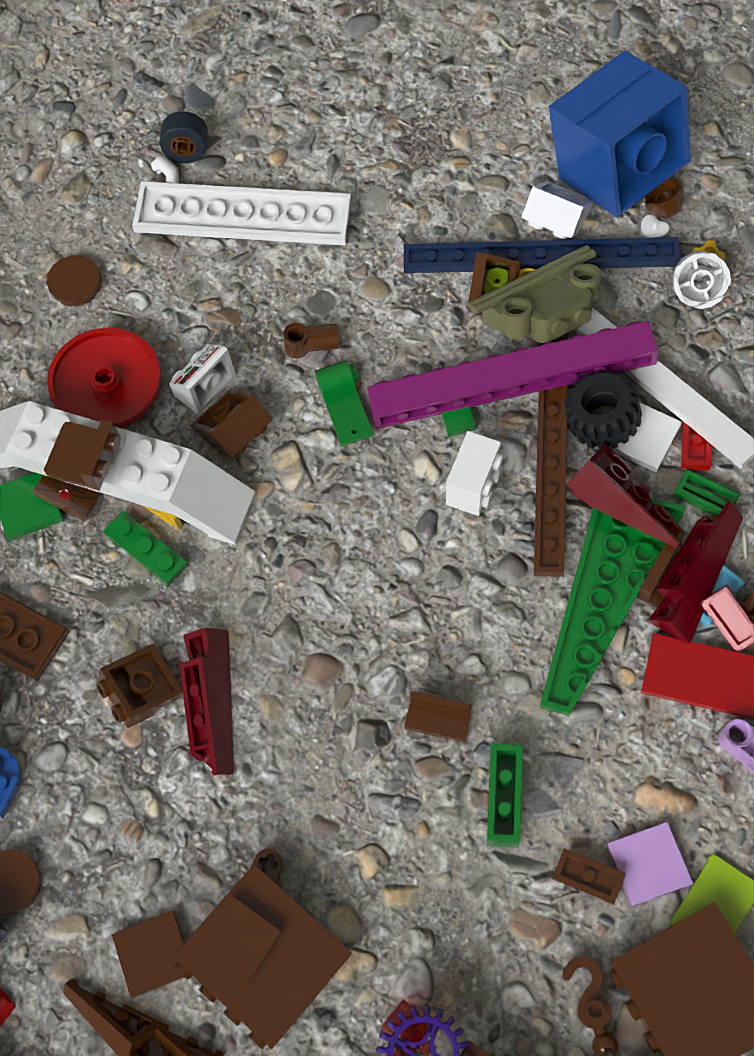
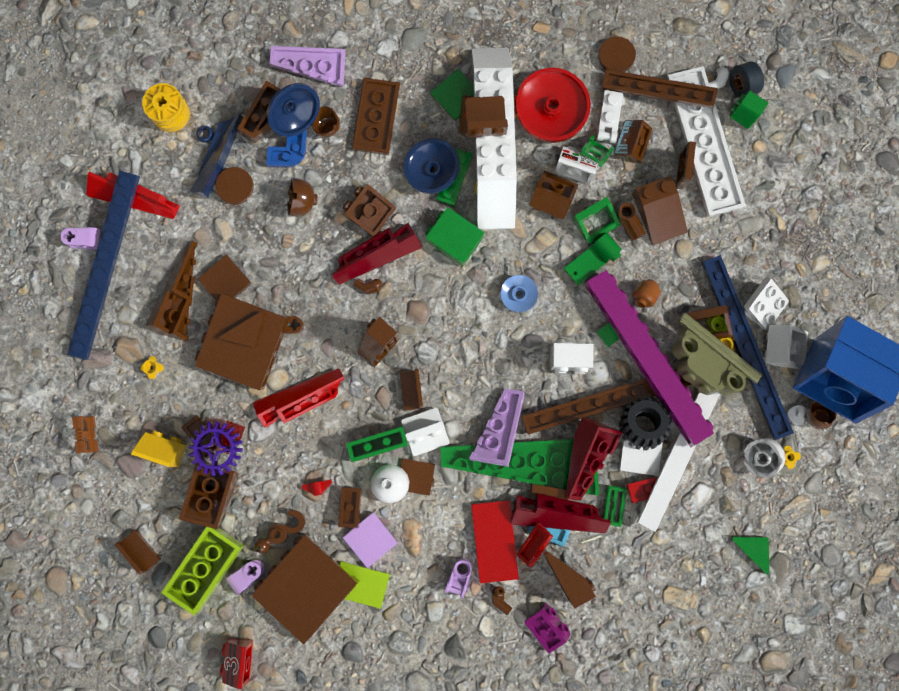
camera: 60 degrees right, 15 degrees up
(76, 780) = (300, 198): none -> reddish brown cylinder
(98, 568) = (429, 155): none -> dark blue dish
(145, 241) = (659, 88): none -> reddish brown plate
(153, 317) = (609, 116): none -> white plate
(199, 298) = (633, 140): none -> reddish brown panel
(205, 337) = (589, 147): none -> green piece
(224, 146) = (748, 109): none -> green brick
(232, 576) = (454, 236): none -> green brick
(256, 729) = (368, 288): none -> reddish brown arm
(265, 242) = (685, 165): none -> reddish brown tile
(287, 403) = (589, 212): none -> green tile
(310, 295) = (660, 210): none -> reddish brown slope
(345, 732) = (378, 341): none -> reddish brown wedge
(348, 504) = (519, 284): none -> medium blue dish
(387, 900) = (298, 398): none -> red wedge
(420, 350) = (646, 293): none -> dark orange head
(492, 213) = (765, 304): none -> white plate
(508, 718) = (425, 431): none -> white bracket
(540, 918) = (317, 488): none -> red piece
(551, 611) = (499, 436): none -> lavender wing
(570, 802) = (389, 483): none -> white cylinder
(572, 761) = (419, 475): none -> reddish brown piece

